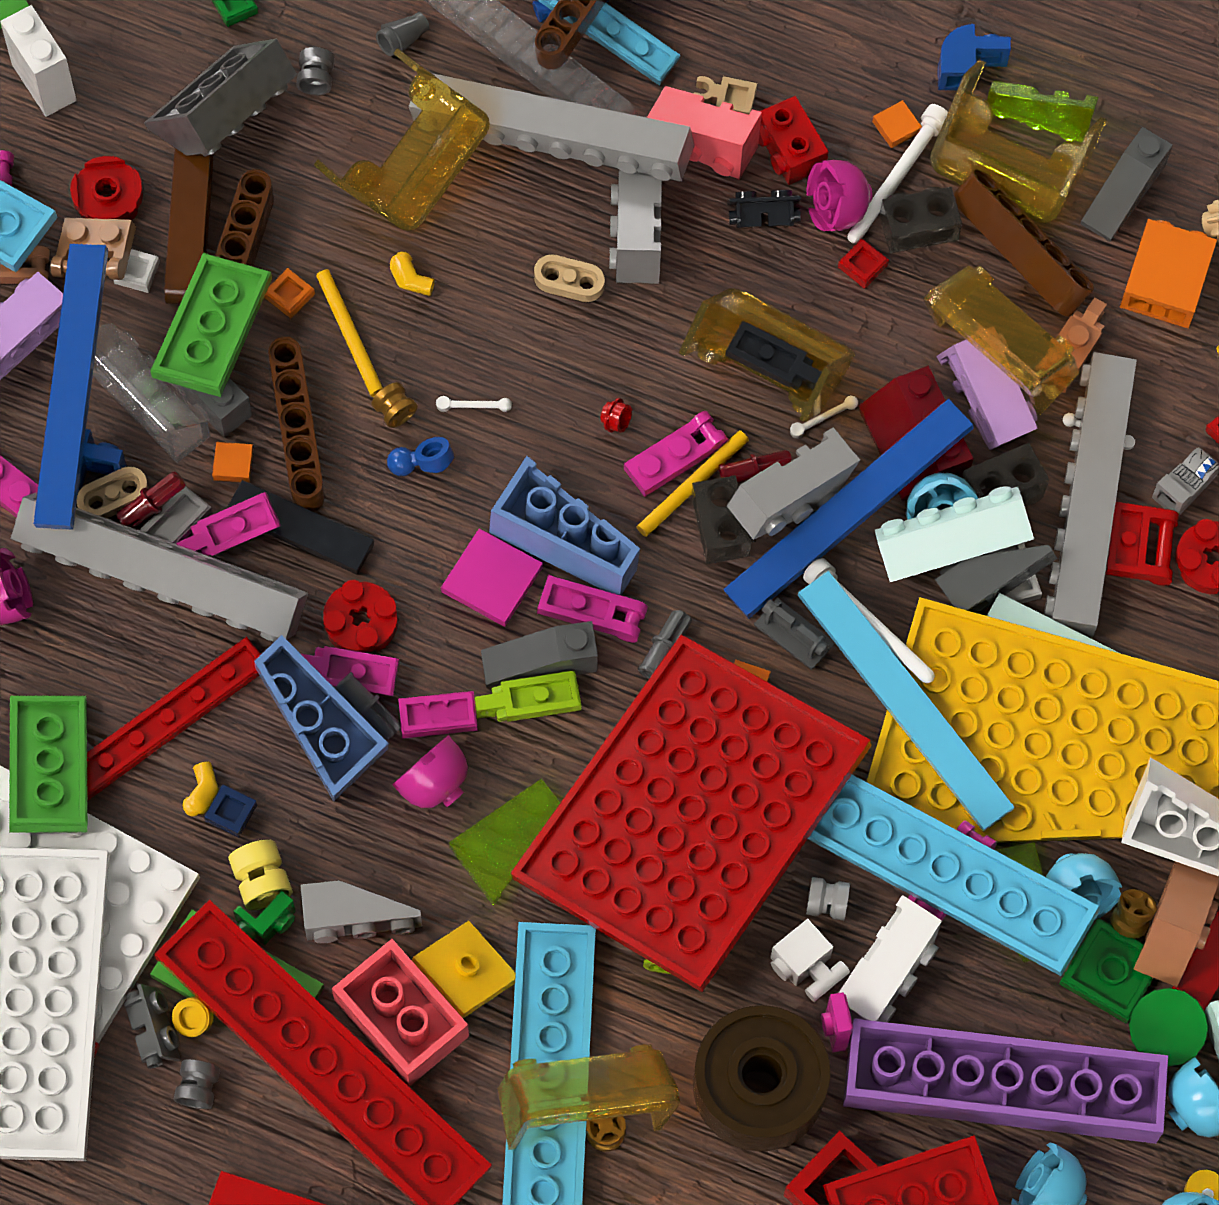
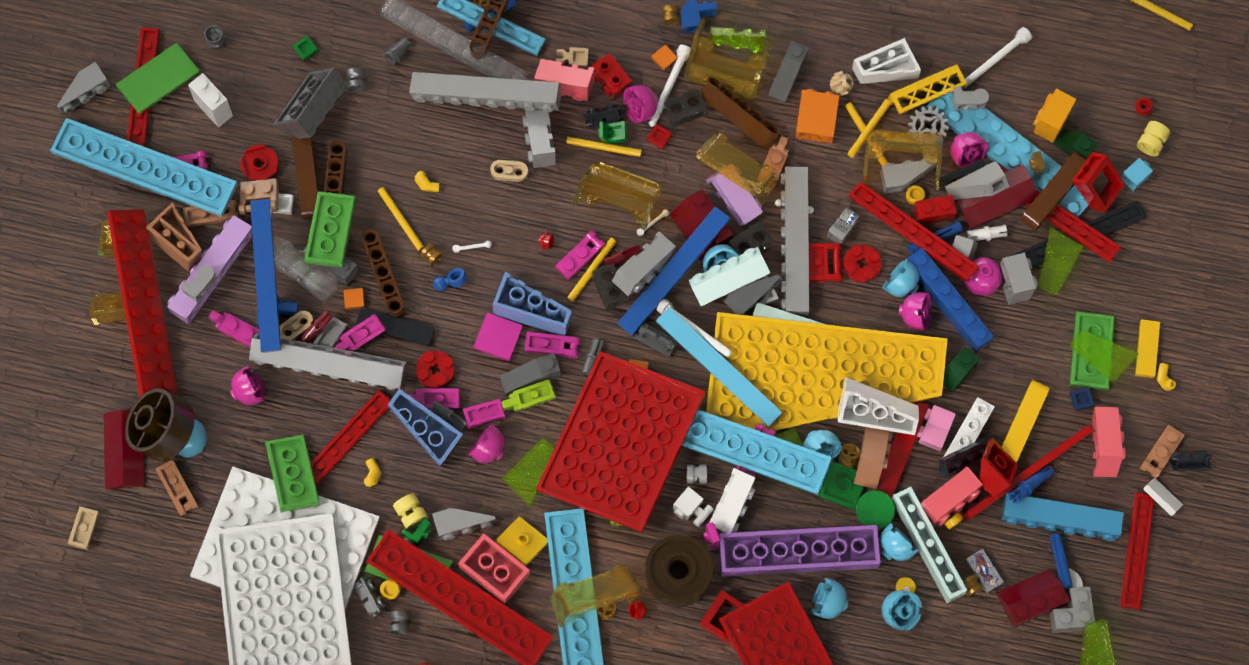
camera: 10 degrees left, 5 degrees up
(230, 811) = (388, 481): dark blue plate -> none
(289, 293) = (365, 202): orange tile -> none
(425, 156) = (422, 119): clear yellow windscreen -> none
(666, 1142) = (637, 610): none -> red plate
(755, 264) = (603, 146): none -> yellow bar
(772, 357) = (622, 197): black hinge -> none
(777, 240) = (613, 132): none -> green bracket
(921, 50) = (670, 15): none -> pearl gold wheel

